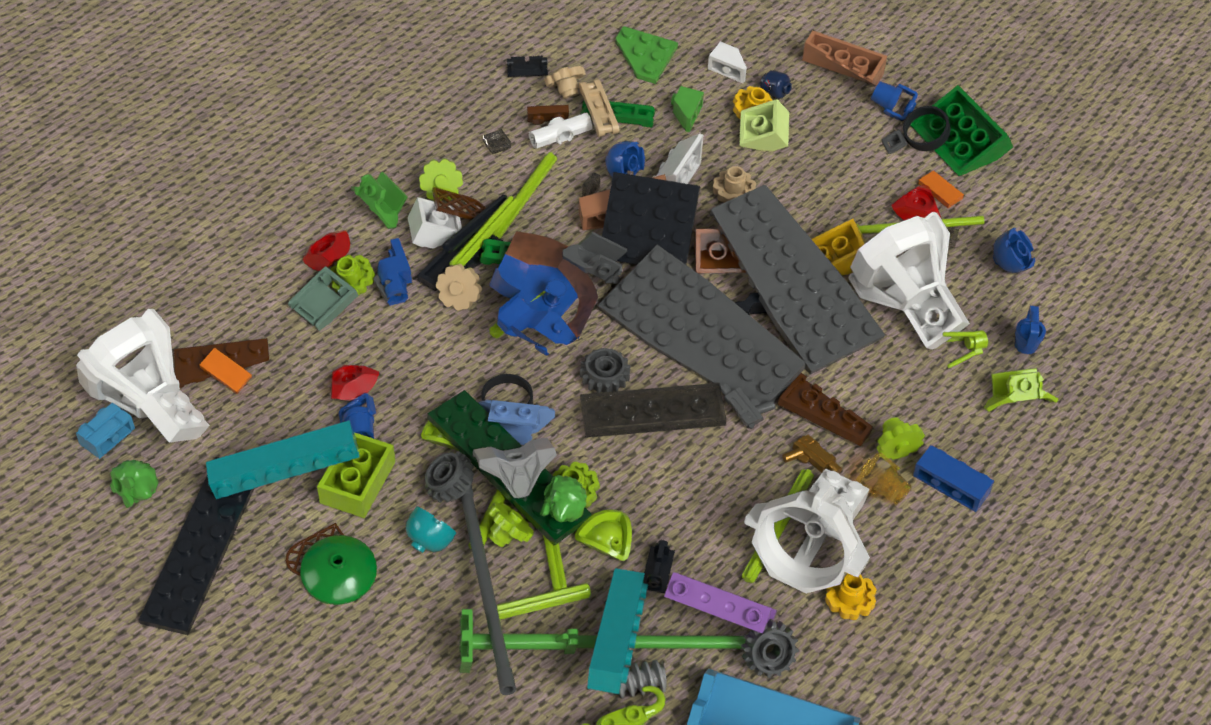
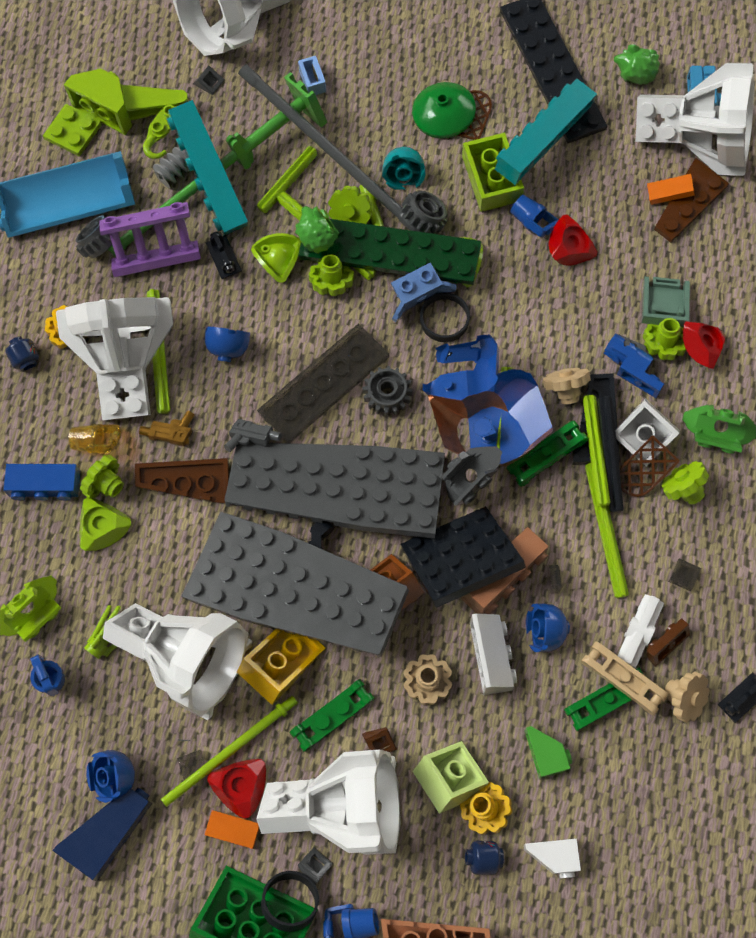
camera: 150 degrees right, 20 degrees up
(432, 683) = (312, 75): none -> light blue piece
(519, 466) = (383, 211): light grey piece -> none
(645, 53) = (650, 812): bright green plate -> none
(711, 479) = (226, 342): none -> blue cylinder
(798, 177) = (379, 739): none -> reddish brown slope
(821, 207) = (332, 715): none -> green plate
(866, 147) = (340, 804): none -> white plate
(910, 594) = (22, 353): none -> dark blue head
(927, 415) = (101, 525): none -> lime hat
(1044, 227) = (103, 835): none -> dark blue slope

